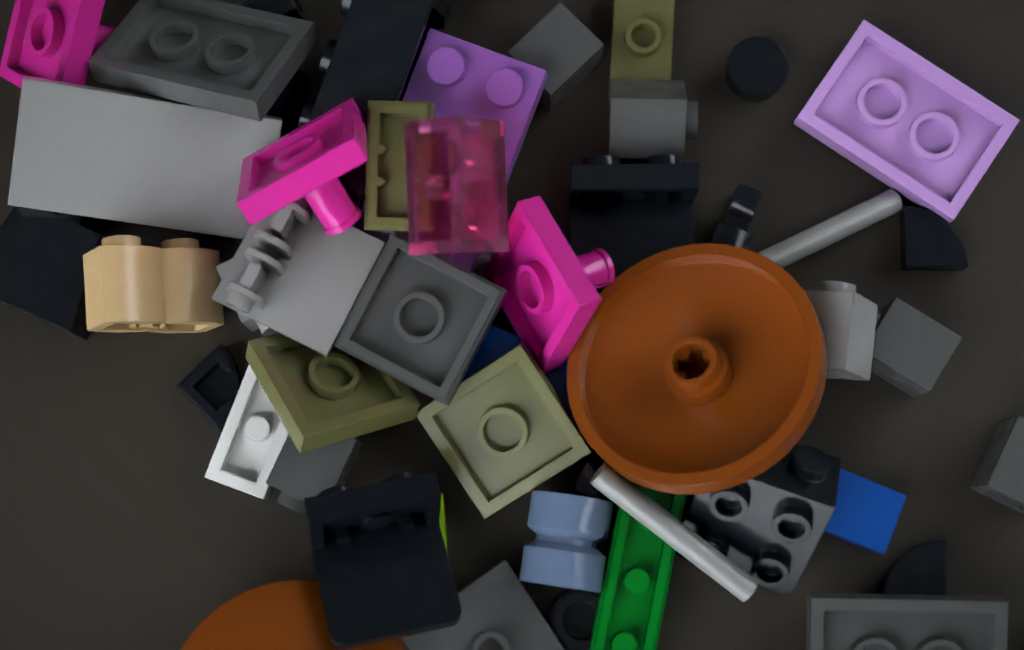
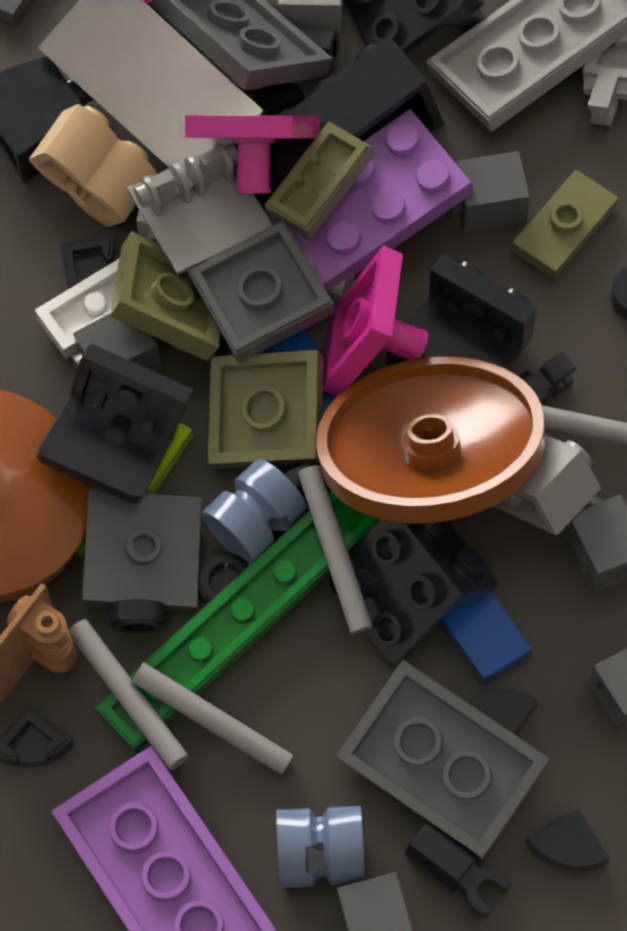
camera: 35 degrees right, 15 degrees down
(456, 186) = (346, 208): clear pink brick -> none
(650, 118) = (528, 267): dark grey brick -> none

